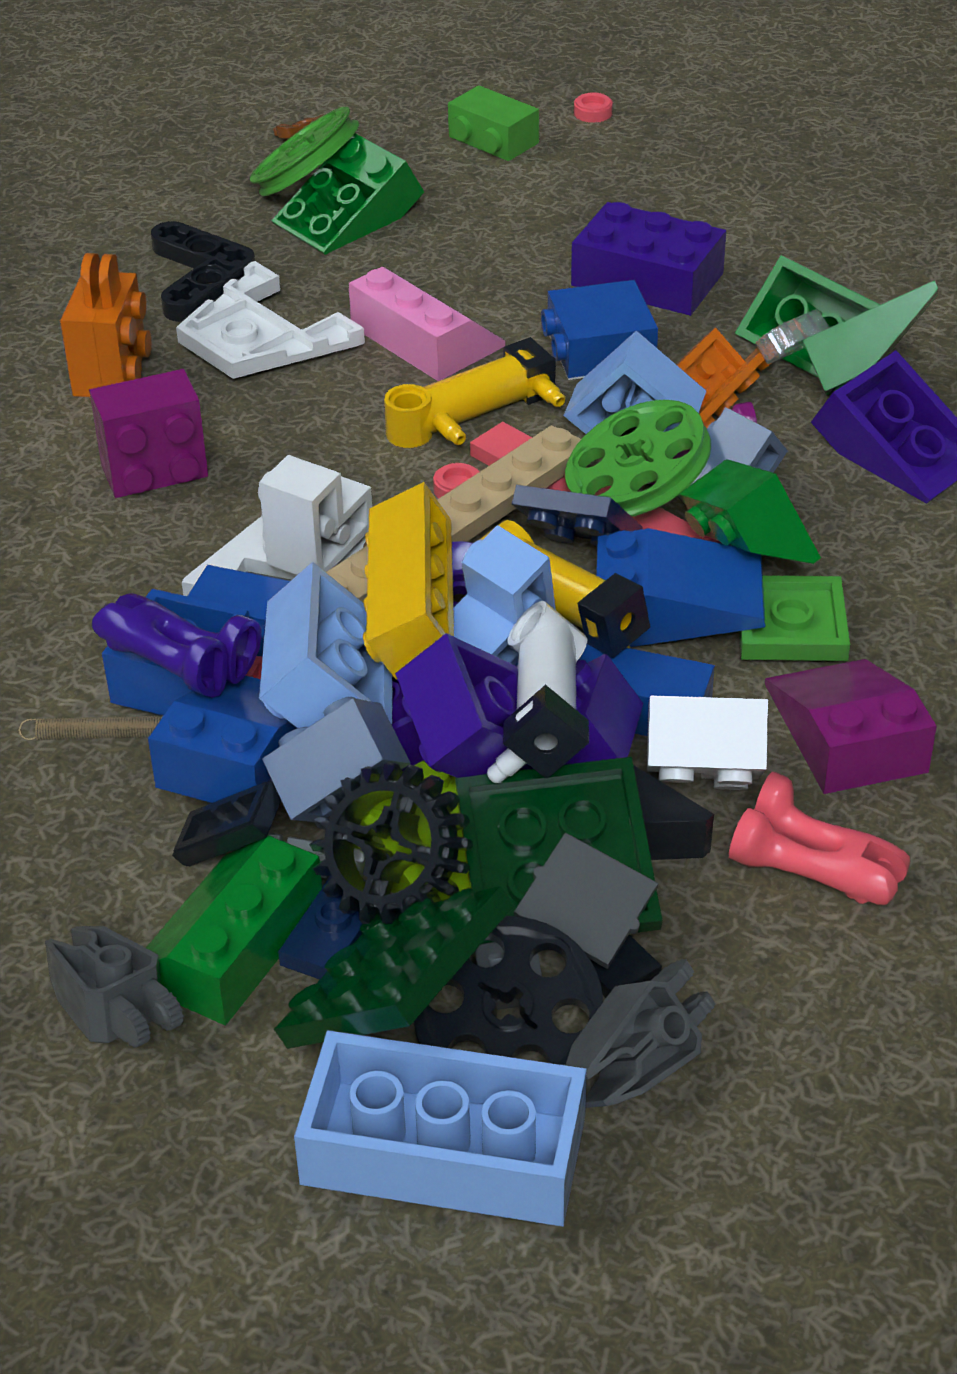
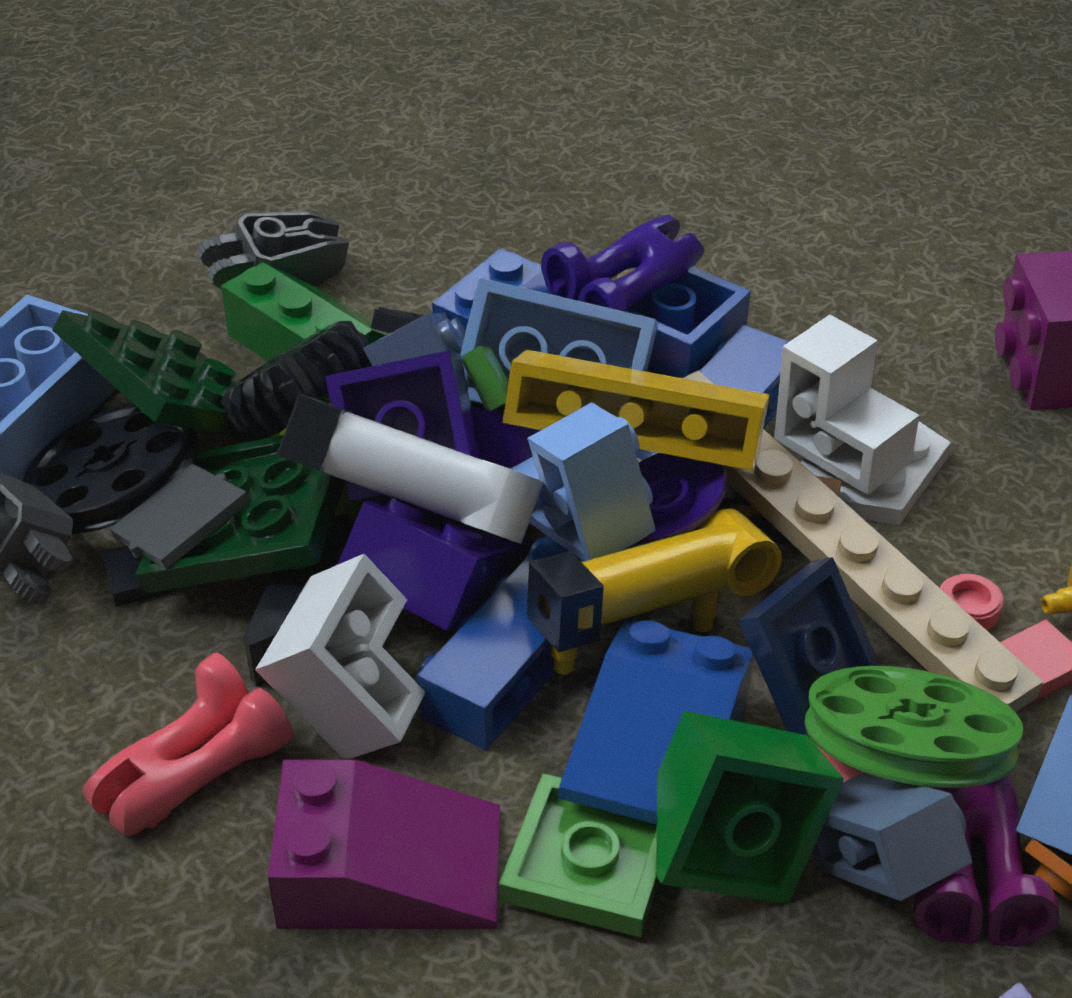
camera: 105 degrees right, 0 degrees up
(381, 675) = (486, 377): none -> bright green tile

